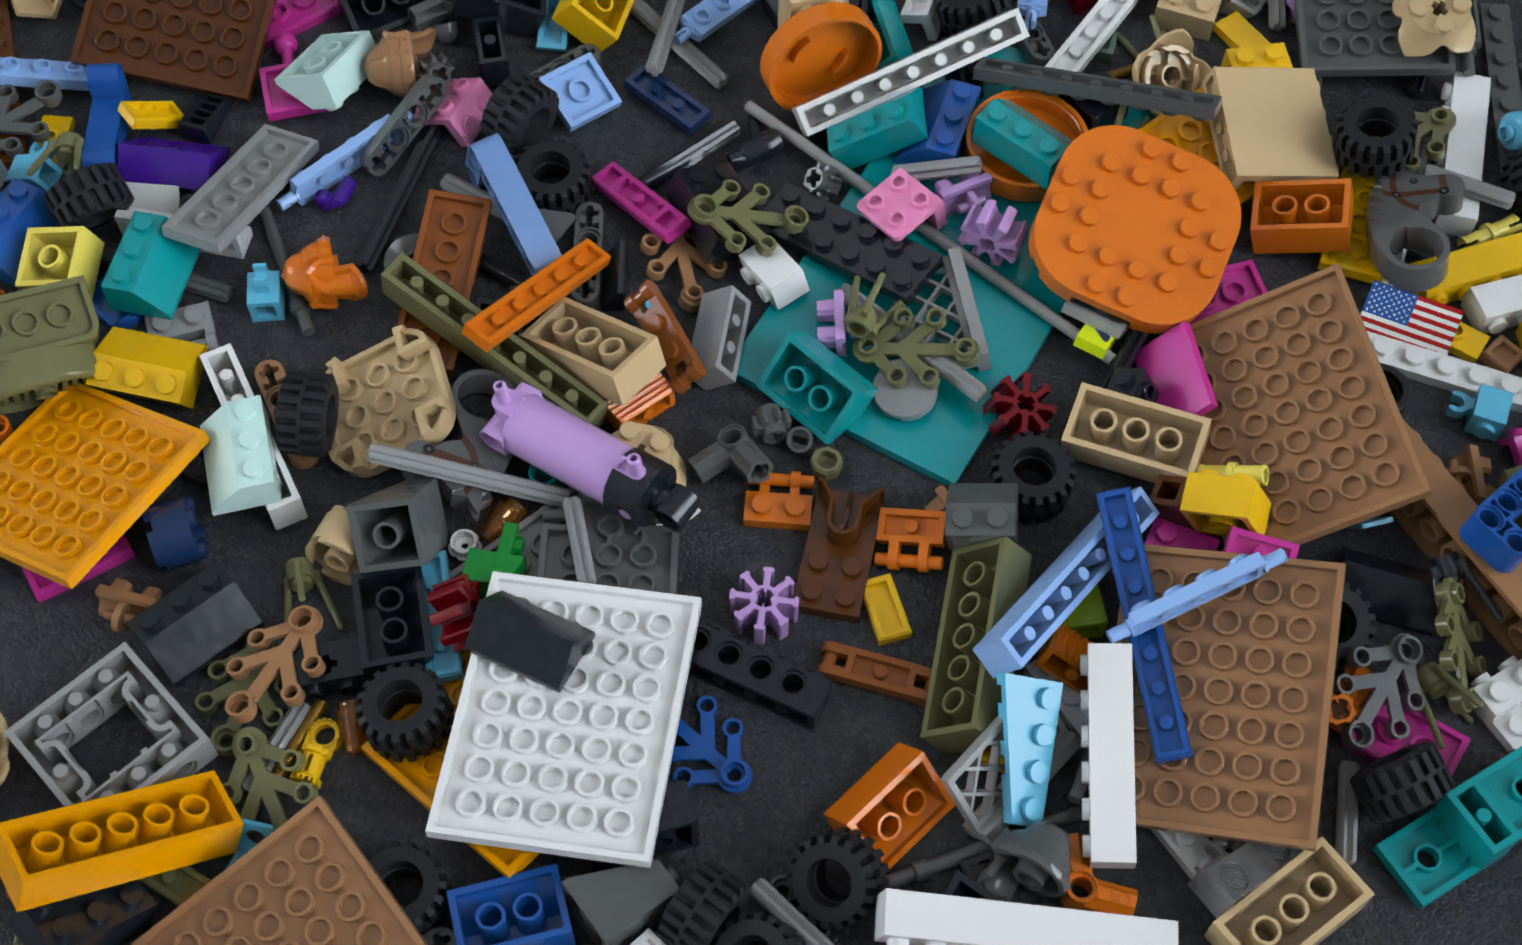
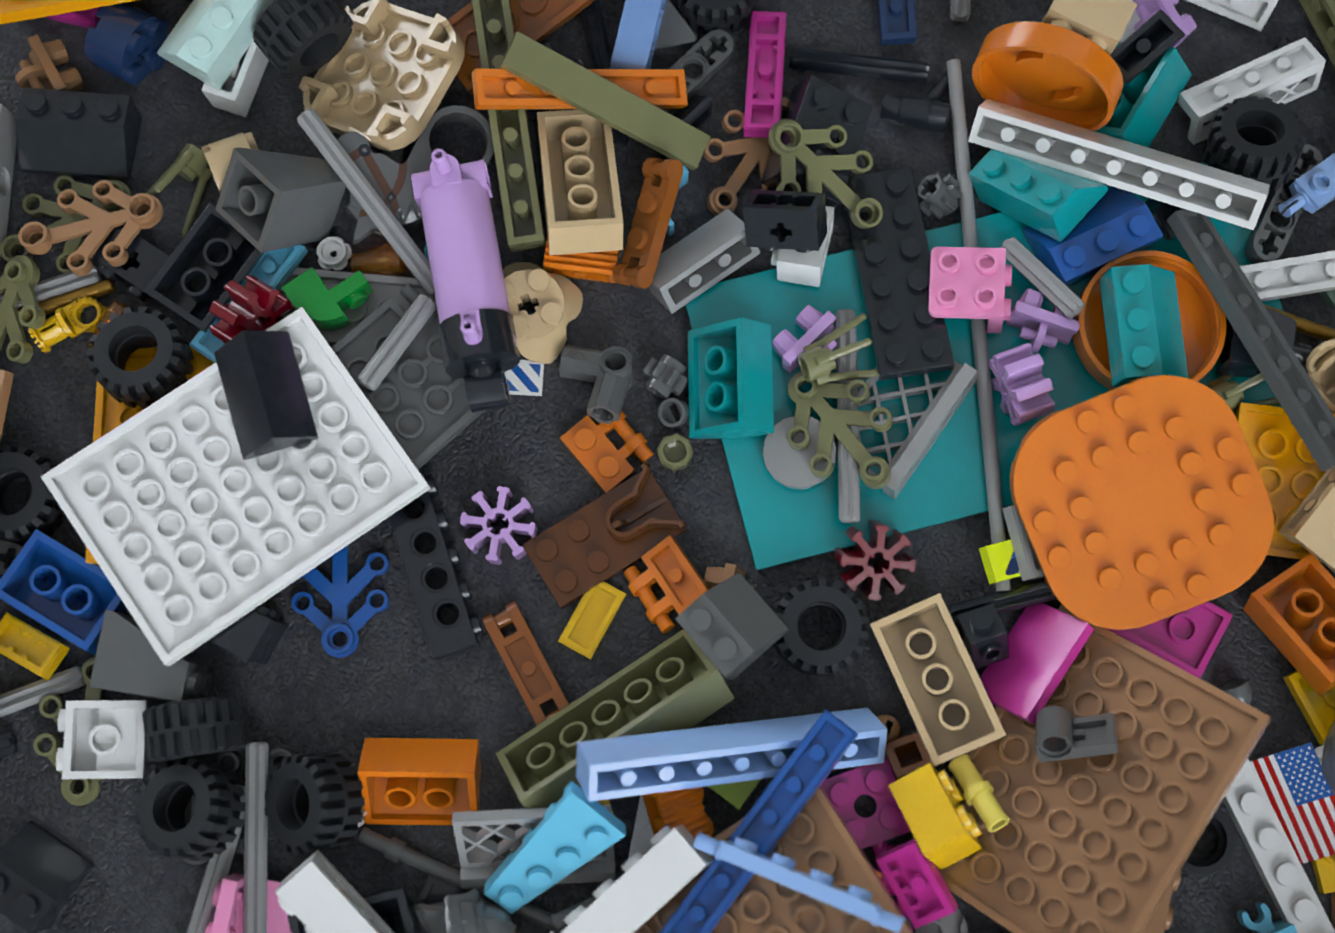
camera: 45 degrees right, 20 degrees up
(559, 285) = (604, 100): none -> olive tile
(738, 259) = (785, 220): none -> black brick
(1242, 393) = (1070, 738): none -> dark grey plate

